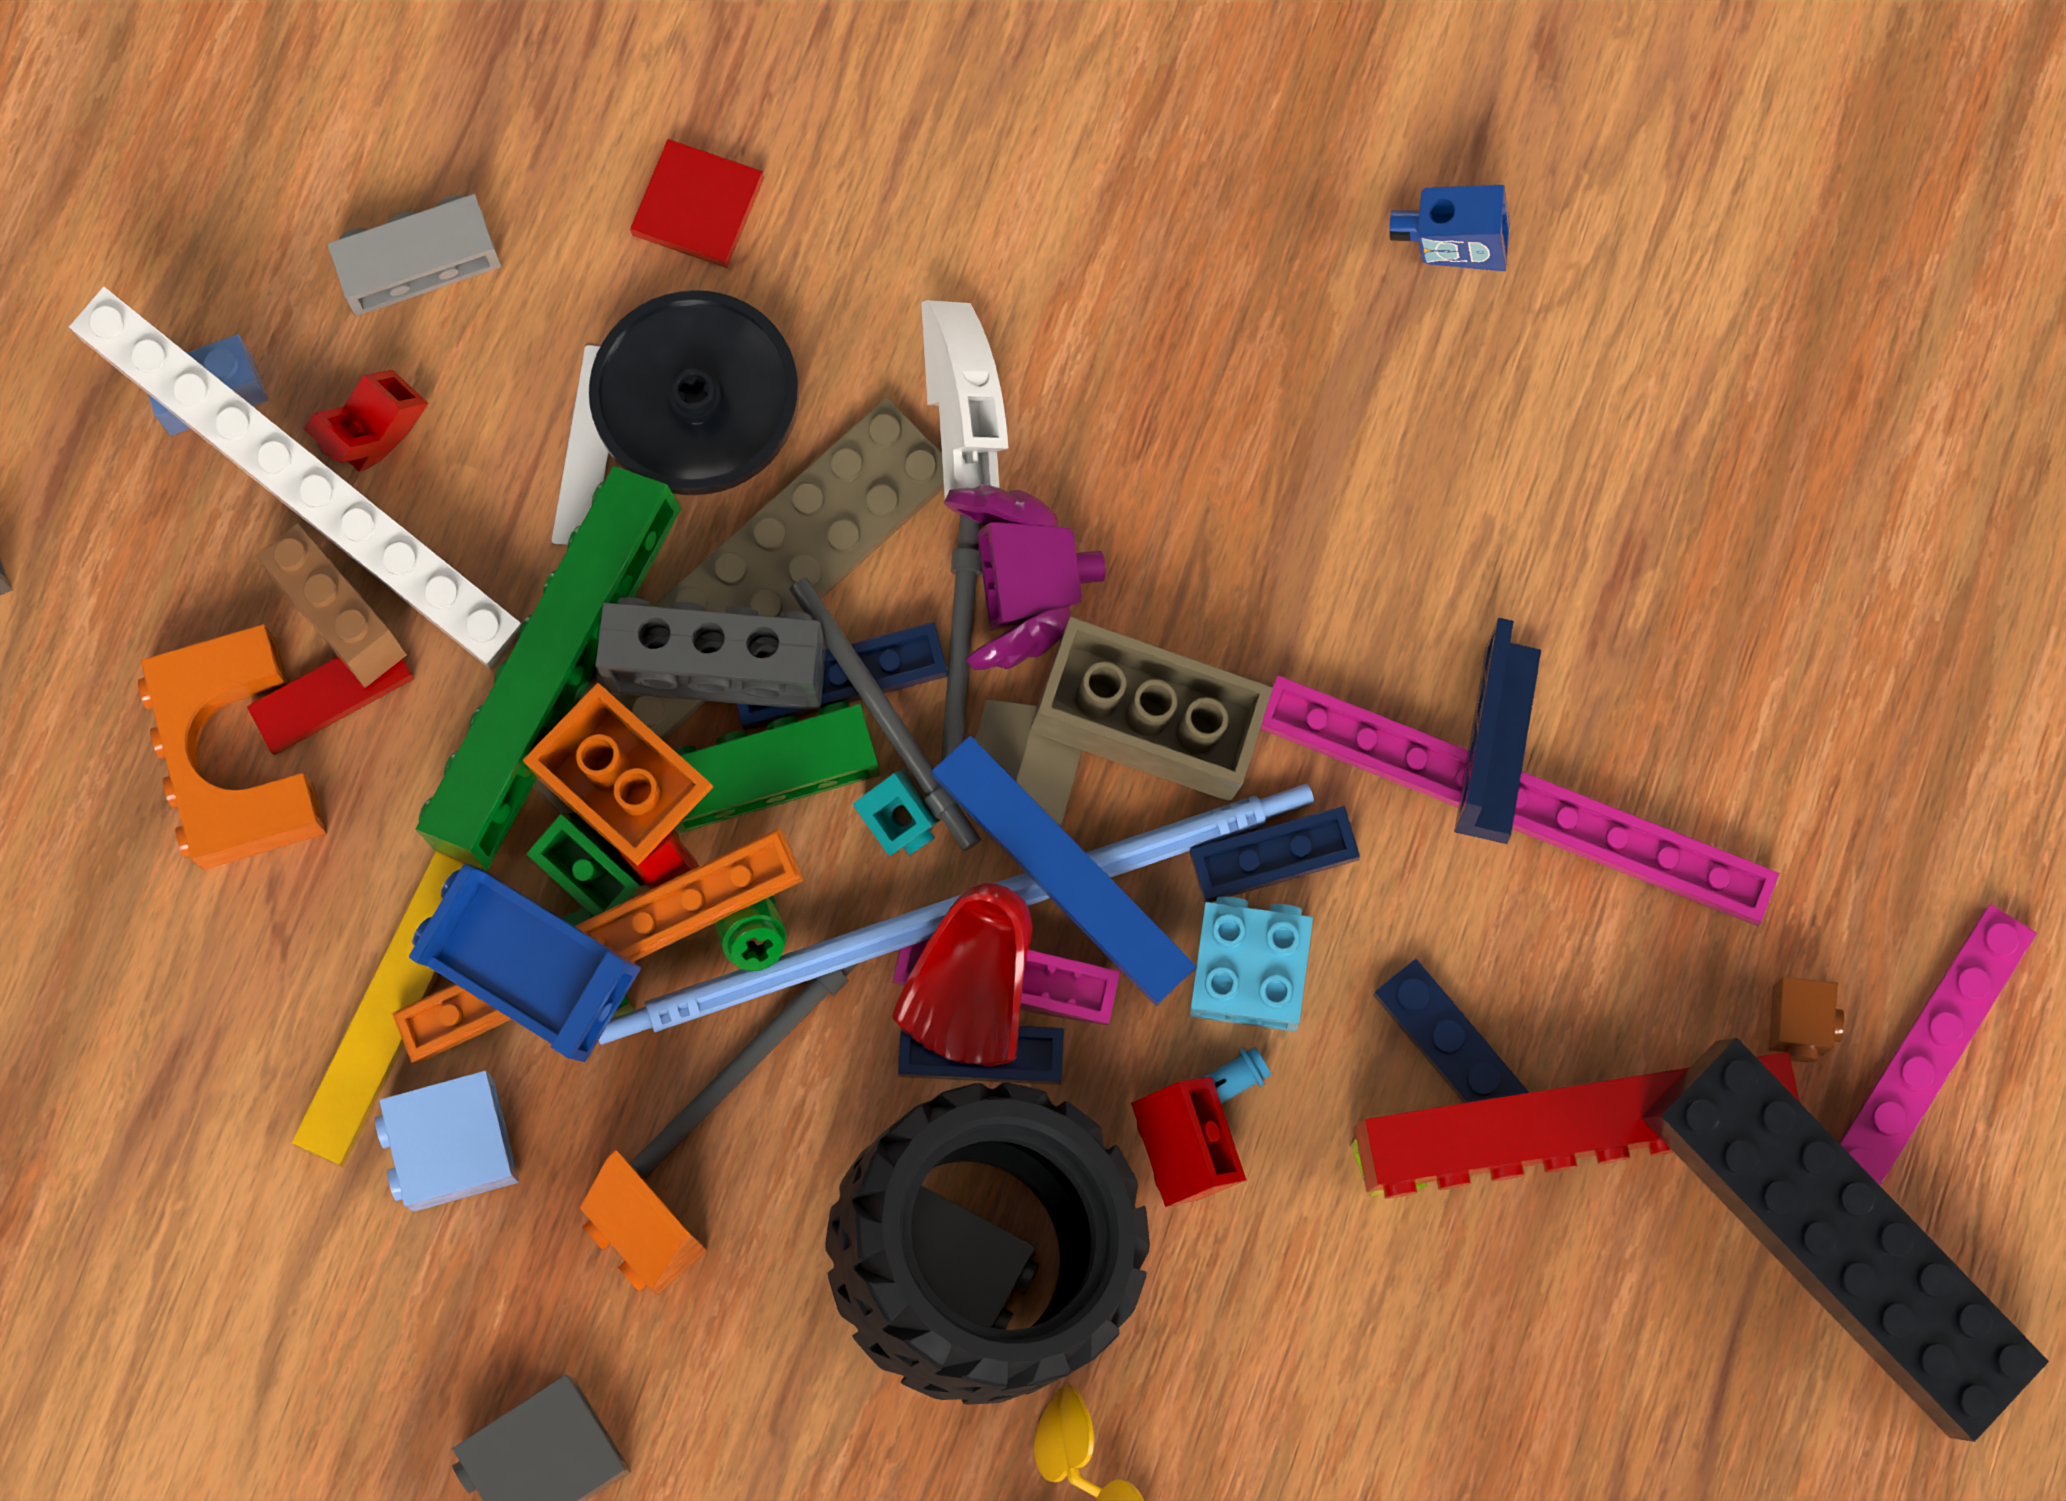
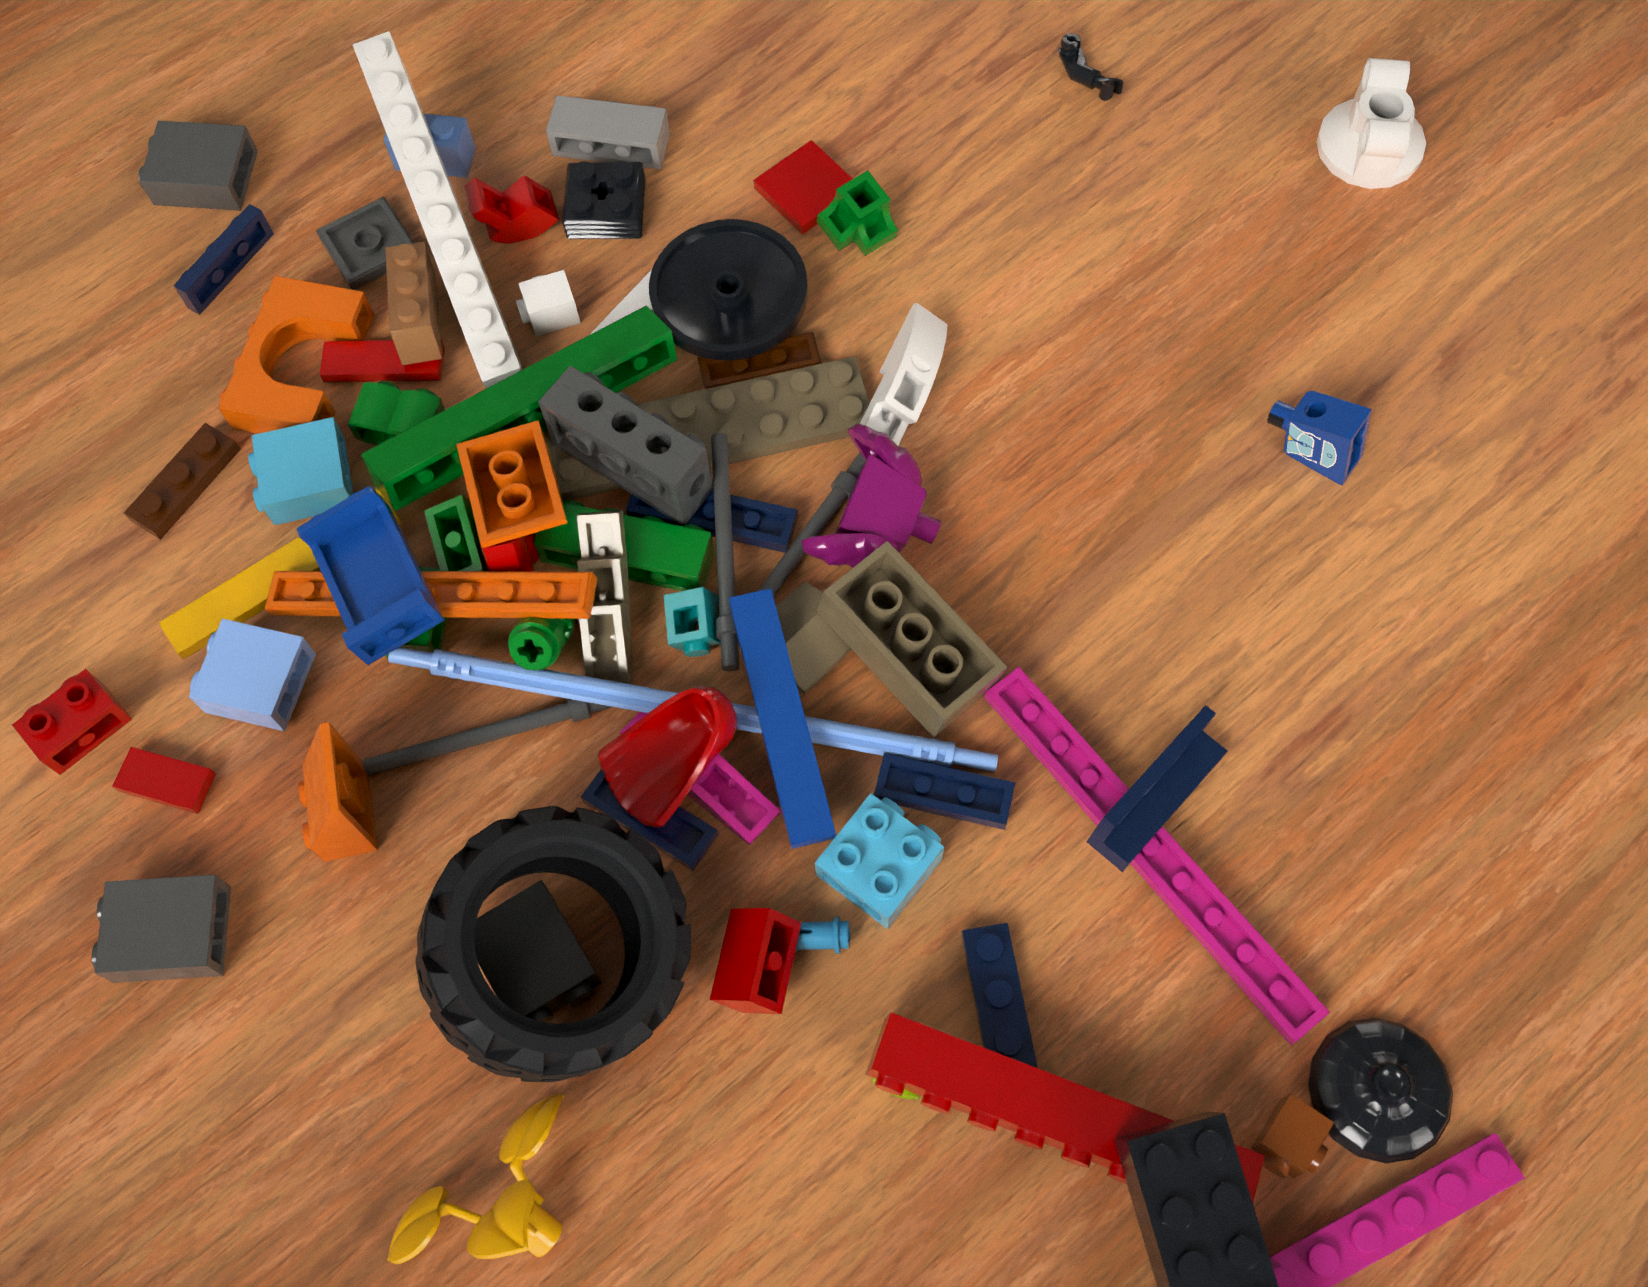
camera: 30 degrees right, 10 degrees down
(48, 667) = (224, 259): none -> dark blue plate
(193, 964) = (182, 481): none -> reddish brown plate
(207, 552) = (360, 240): none -> dark grey tile
(274, 1303) = (71, 721): none -> red brick
(338, 881) = (300, 470): none -> medium azure brick
(399, 754) = (387, 411): none -> green brick
(422, 1308) = (164, 780): none -> red tile
(462, 380) = (604, 200): none -> black brick
(486, 518) = (548, 303): none -> white brick
(769, 805) = (608, 631): none -> dark tan slope
(788, 215) = (859, 215): none -> green brick
(813, 433) = (790, 354): none -> reddish brown tile
(1862, 920) = (1381, 1090): none -> black hat

